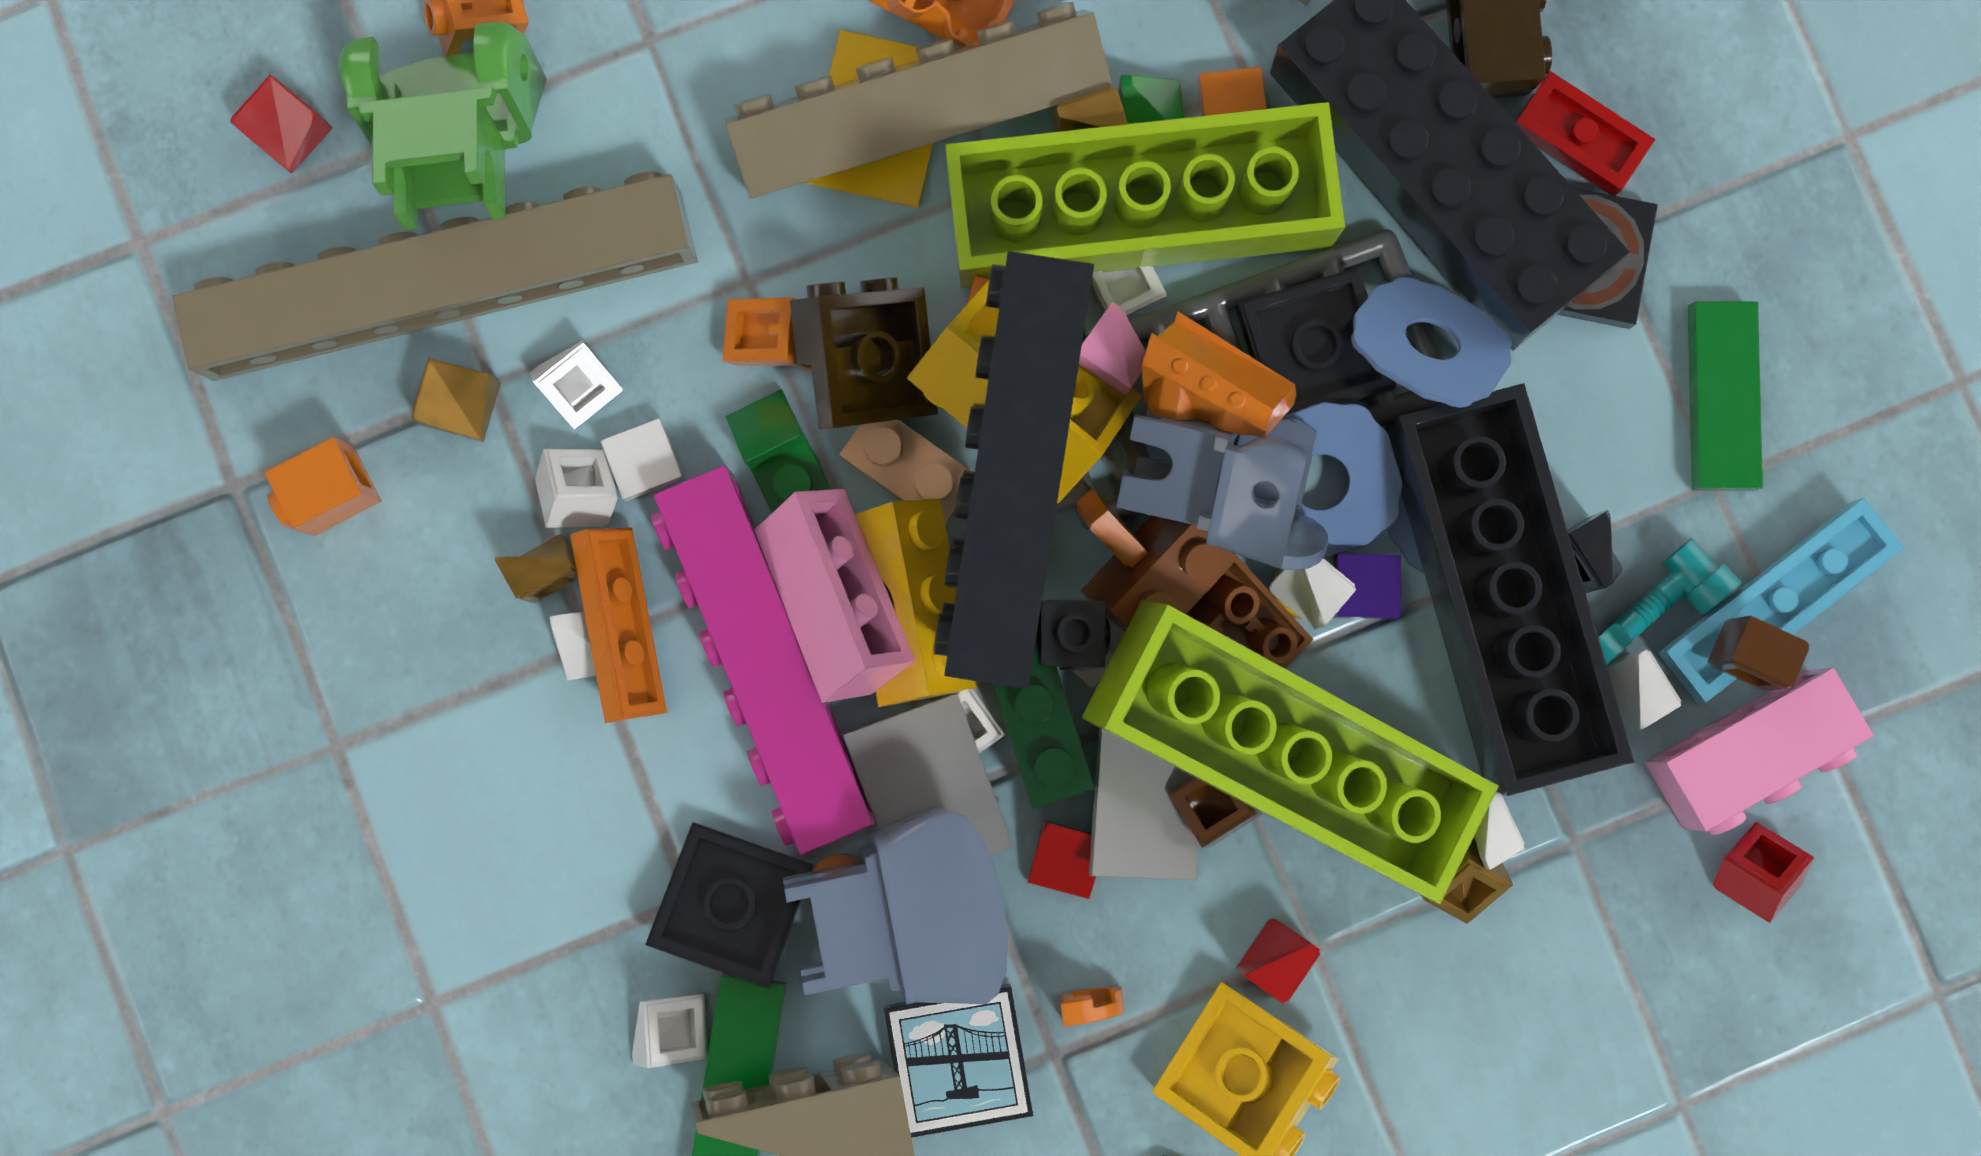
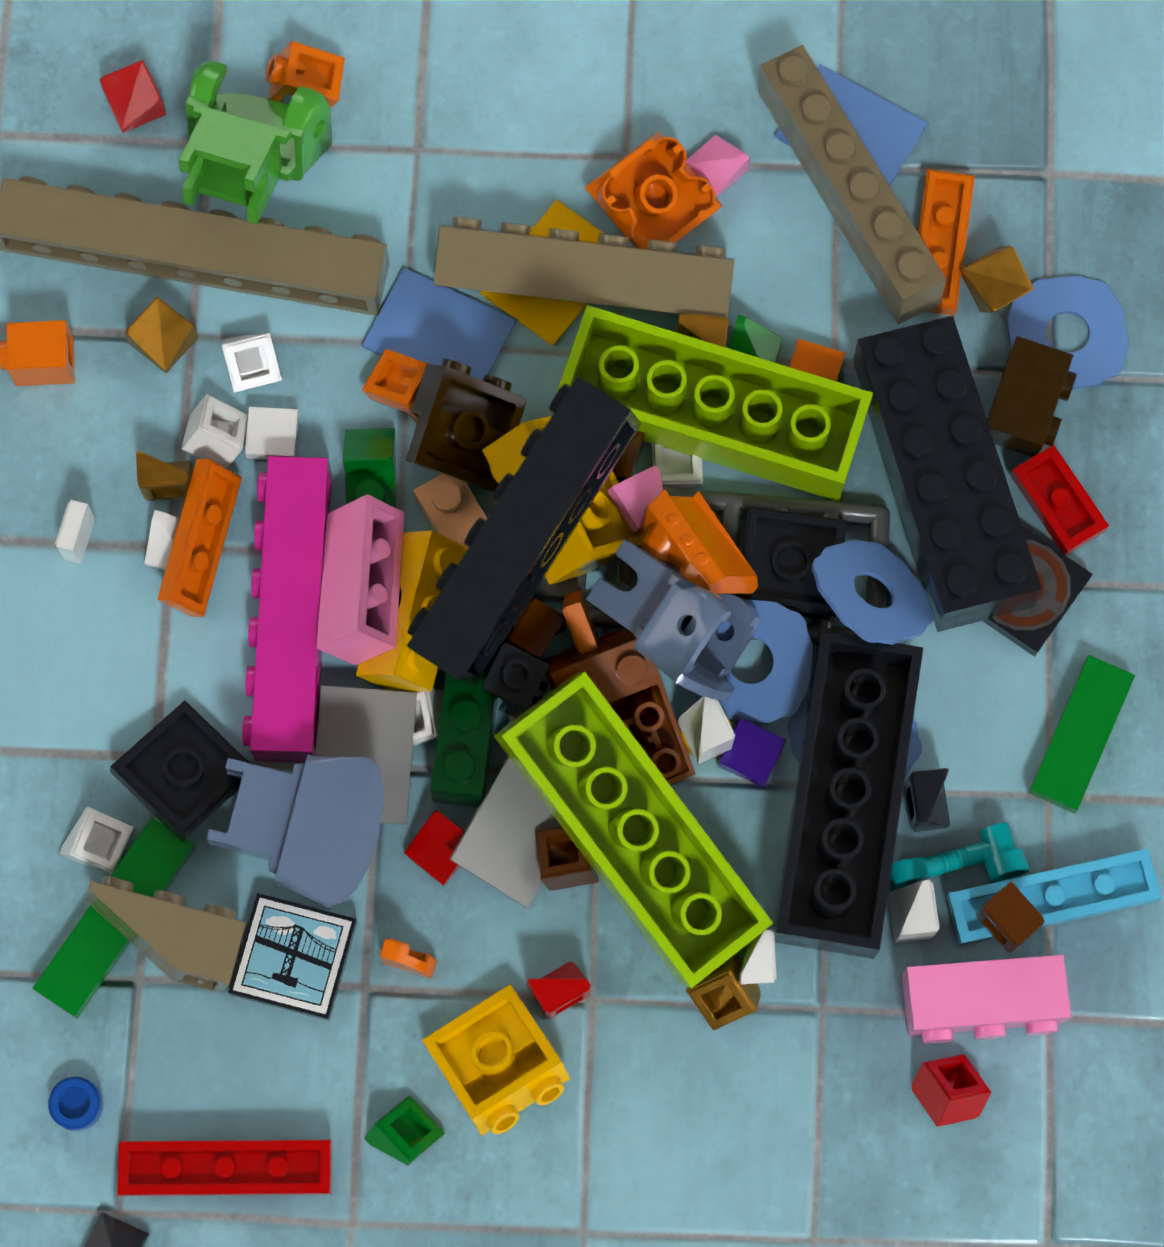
camera: 25 degrees right, 10 degrees down
(468, 683) = (75, 531): none -> white tile
(775, 245) = (438, 324): none -> medium blue window
(1068, 560) = (537, 628): none -> reddish brown slope

